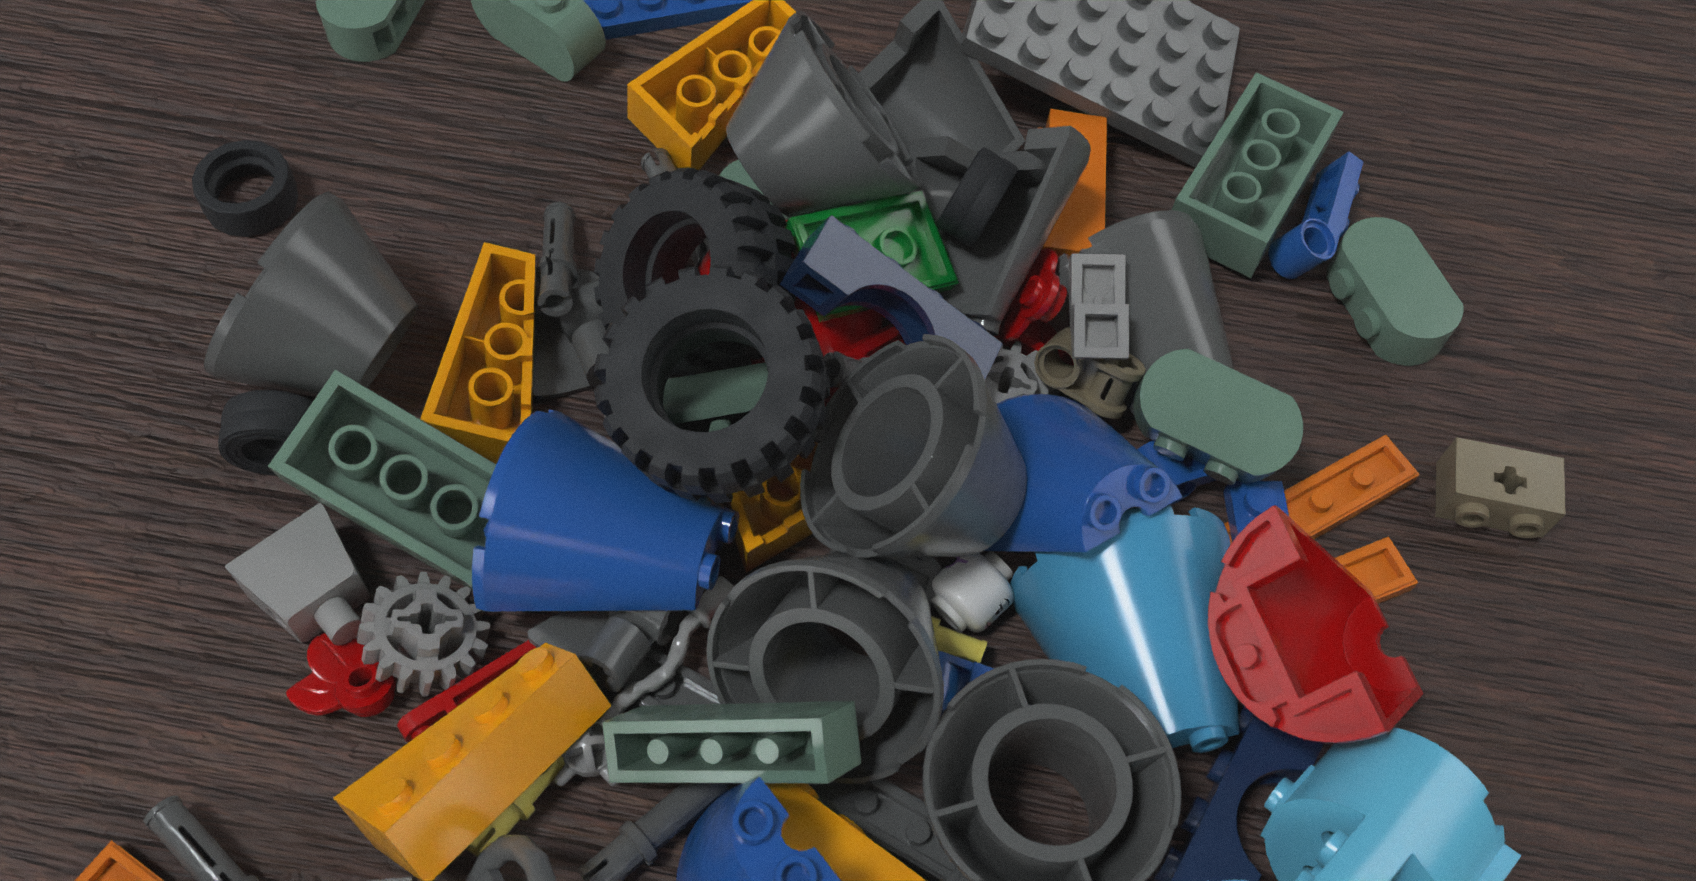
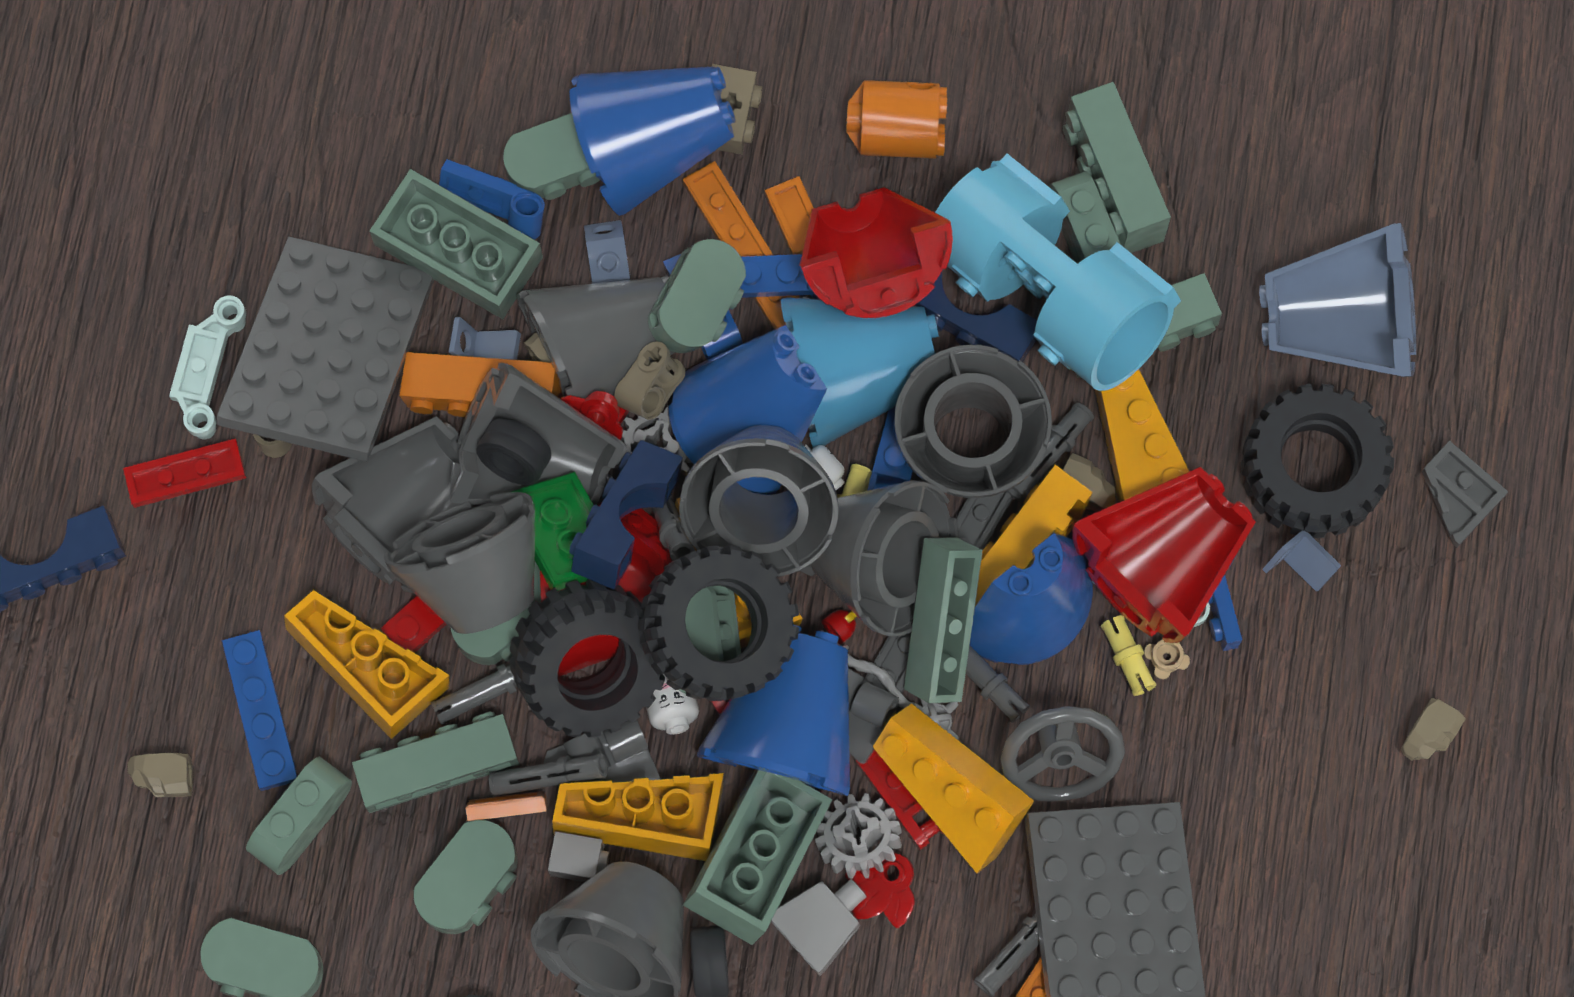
camera: 85 degrees left, 15 degrees up
(441, 290) = (577, 857): none -> light grey brick
(442, 181) = (466, 878): none -> sand green brick
(524, 212) = (506, 806): none -> orange tile
(588, 145) = (435, 762): none -> sand green brick
(1098, 306) = (618, 369): light grey slope -> none
(1129, 204) = (484, 343): none -> sand blue bracket
(1266, 339) = (607, 252): none -> sand blue bracket
(1449, 372) = (648, 127): none -> blue cone
(1539, 713) = (898, 119): none -> orange cylinder

